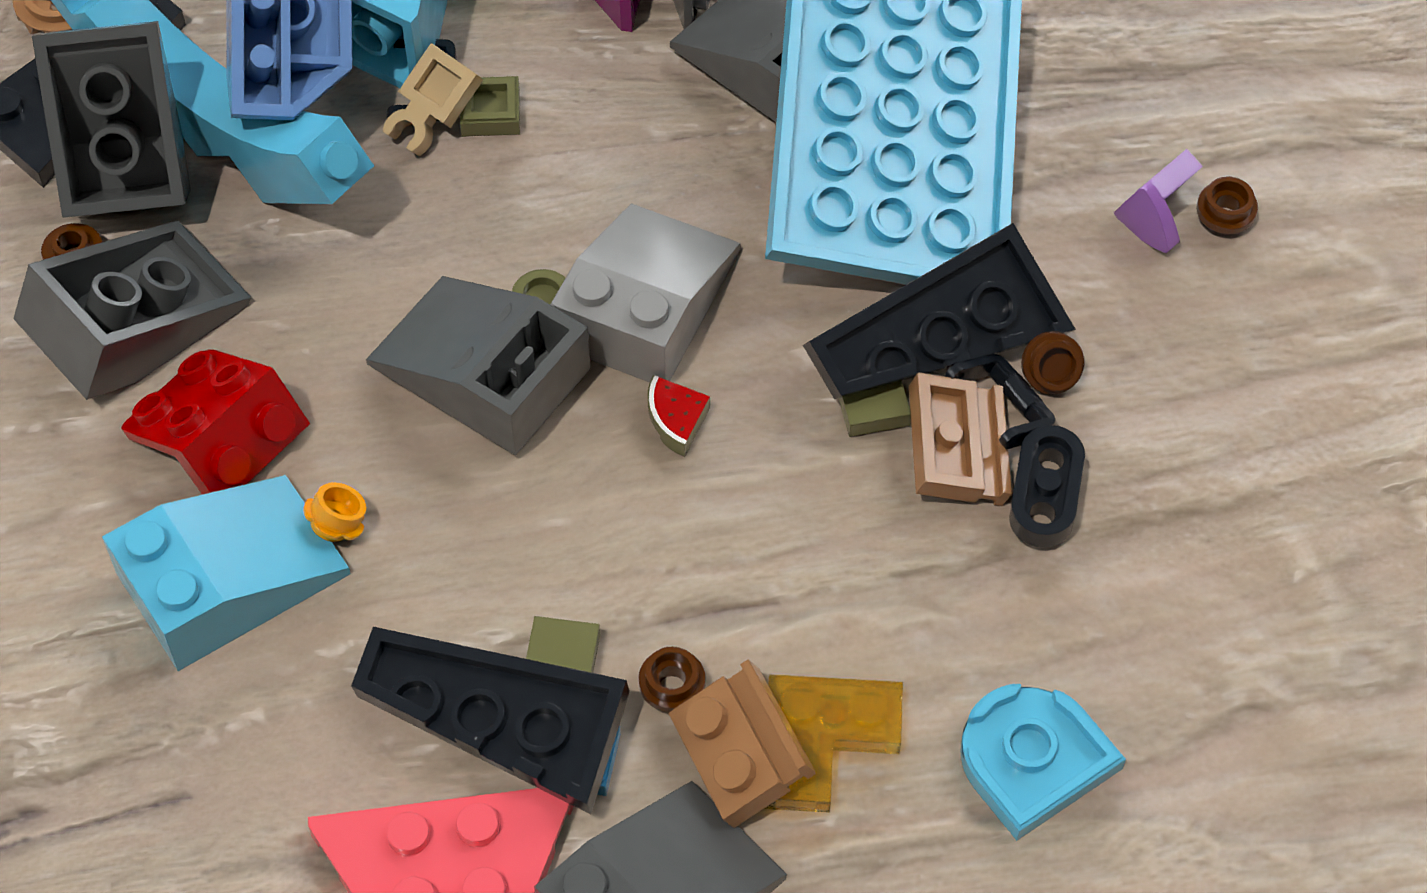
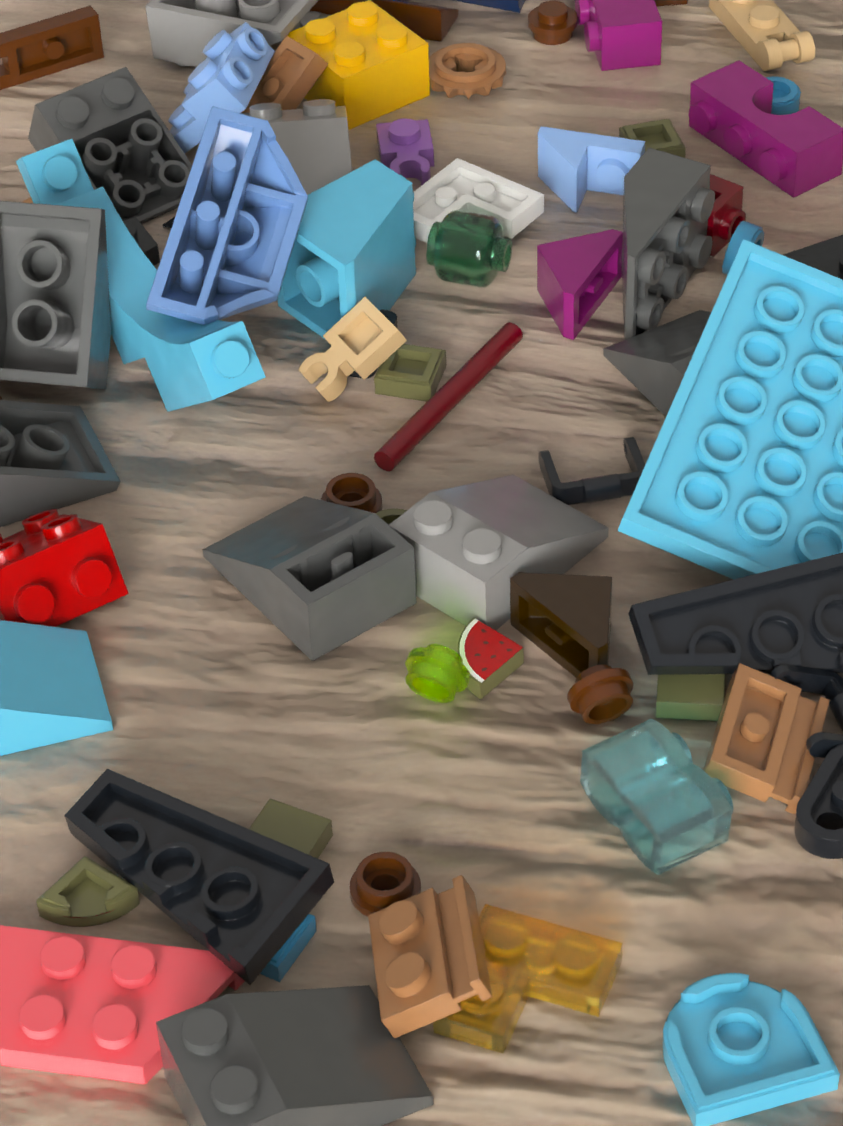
camera: 20 degrees right, 15 degrees down
(336, 512) = (117, 668): light orange plate -> none
(400, 758) = (87, 896): none -> olive tile
(490, 258) = (354, 491): none -> reddish brown plate
(537, 127) = (447, 397): none -> dark red bar
(640, 444) = (436, 673): none -> clear neon green plate
(715, 200) = (594, 488): none -> black piece
(745, 359) = (564, 616): none -> dark brown slope
(798, 429) = (601, 694): none -> reddish brown plate
(884, 524) = (656, 795): none -> clear light blue brick

